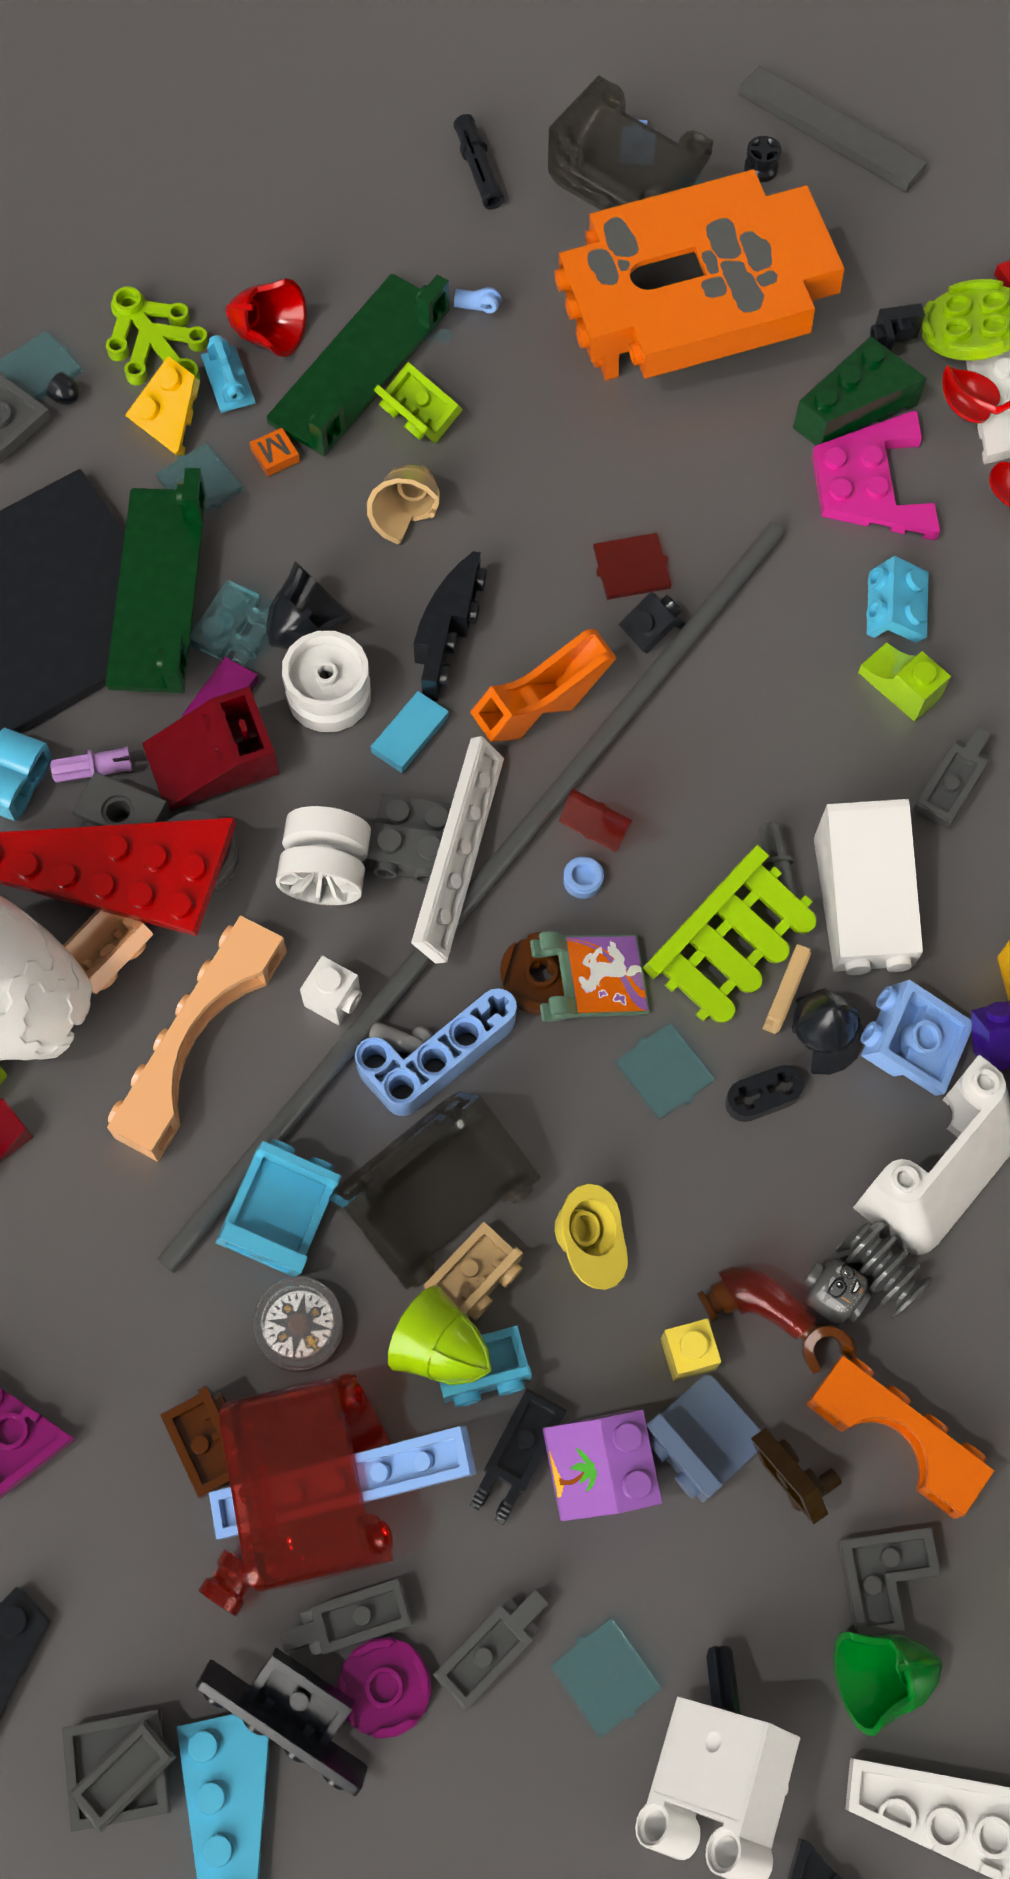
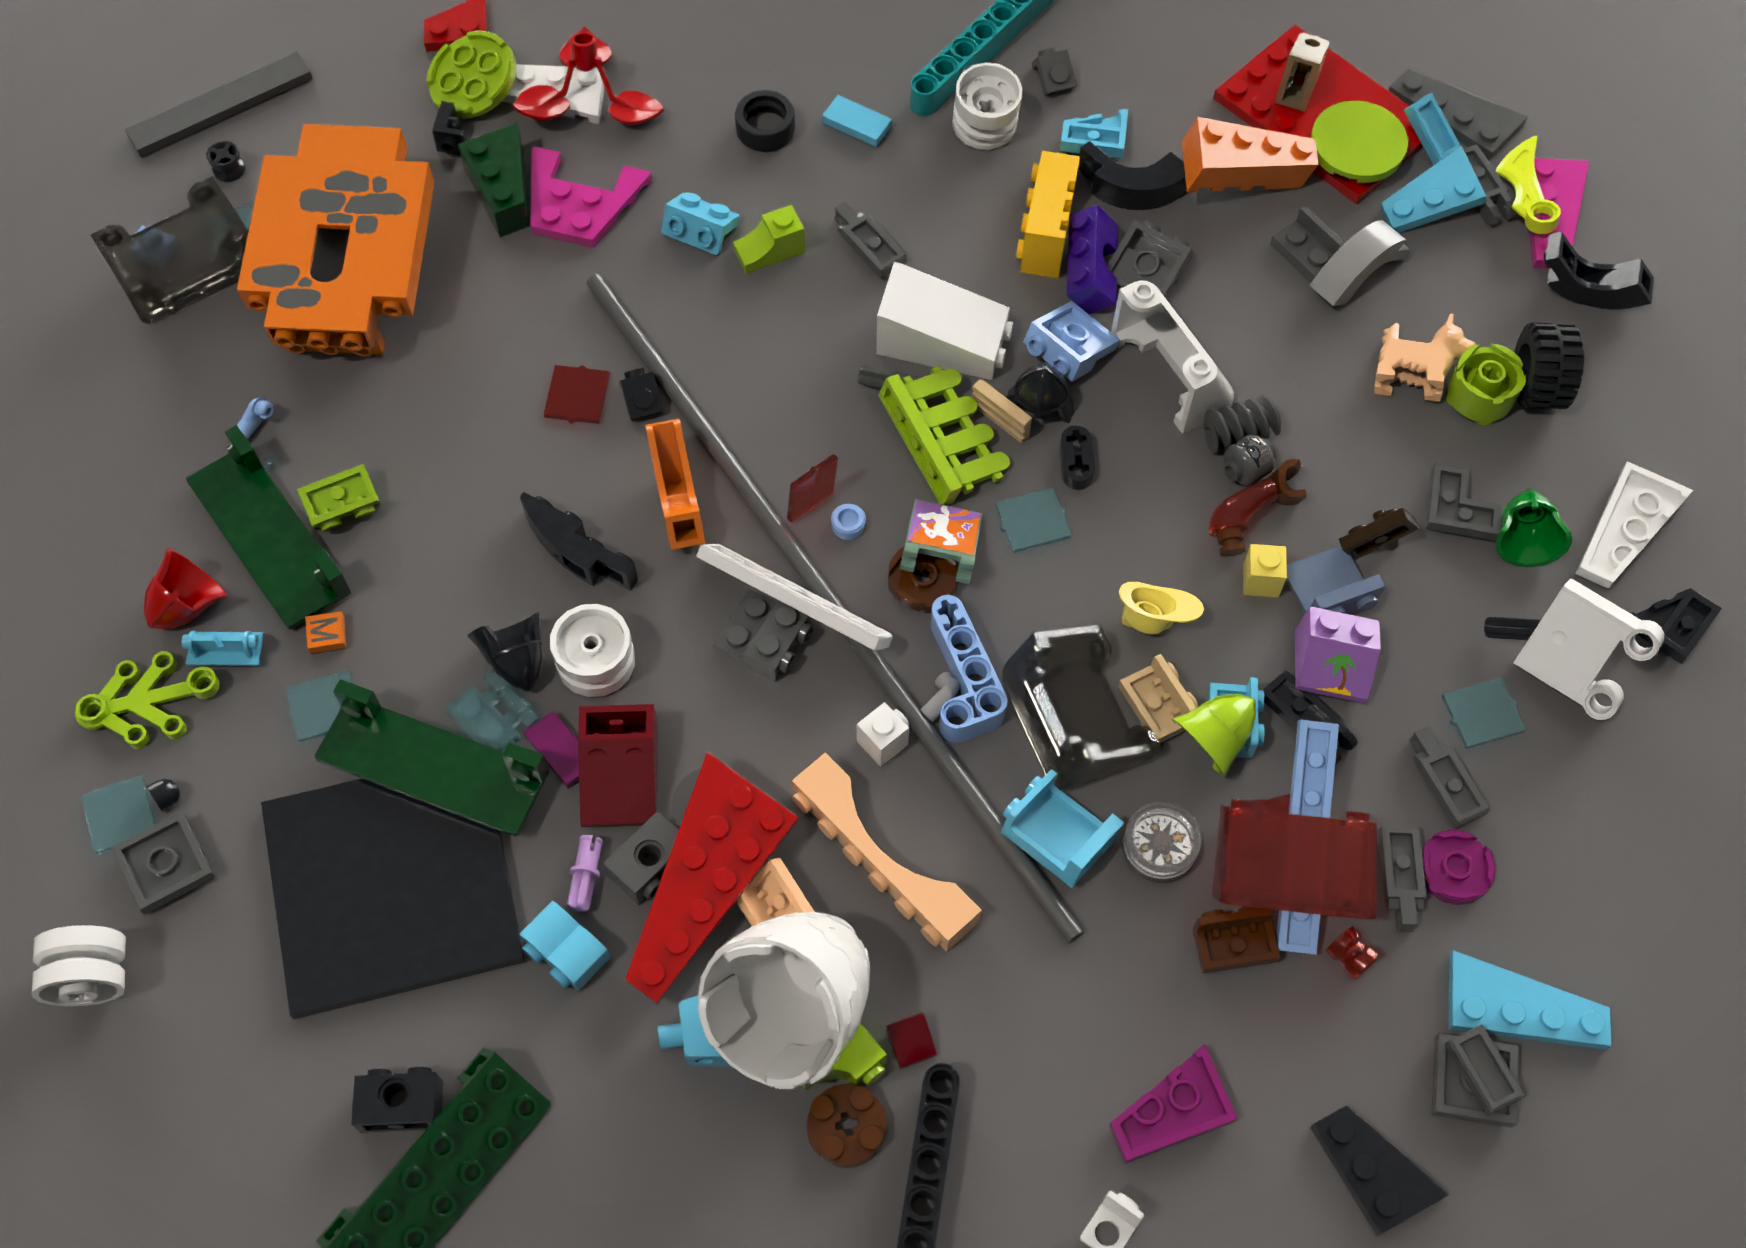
camera: 70 degrees left, 5 degrees down
(167, 405) = (233, 705): yellow wing -> none
(291, 1710) = (1463, 928): black bracket -> none
(323, 855) = (763, 698): white wheel -> none
(403, 497) = (432, 532): tan helmet -> none
(409, 732) = (661, 607): medium azure tile -> none
(487, 183) = (98, 372): black pin -> none
(947, 1471) = (1396, 440): orange arch -> none

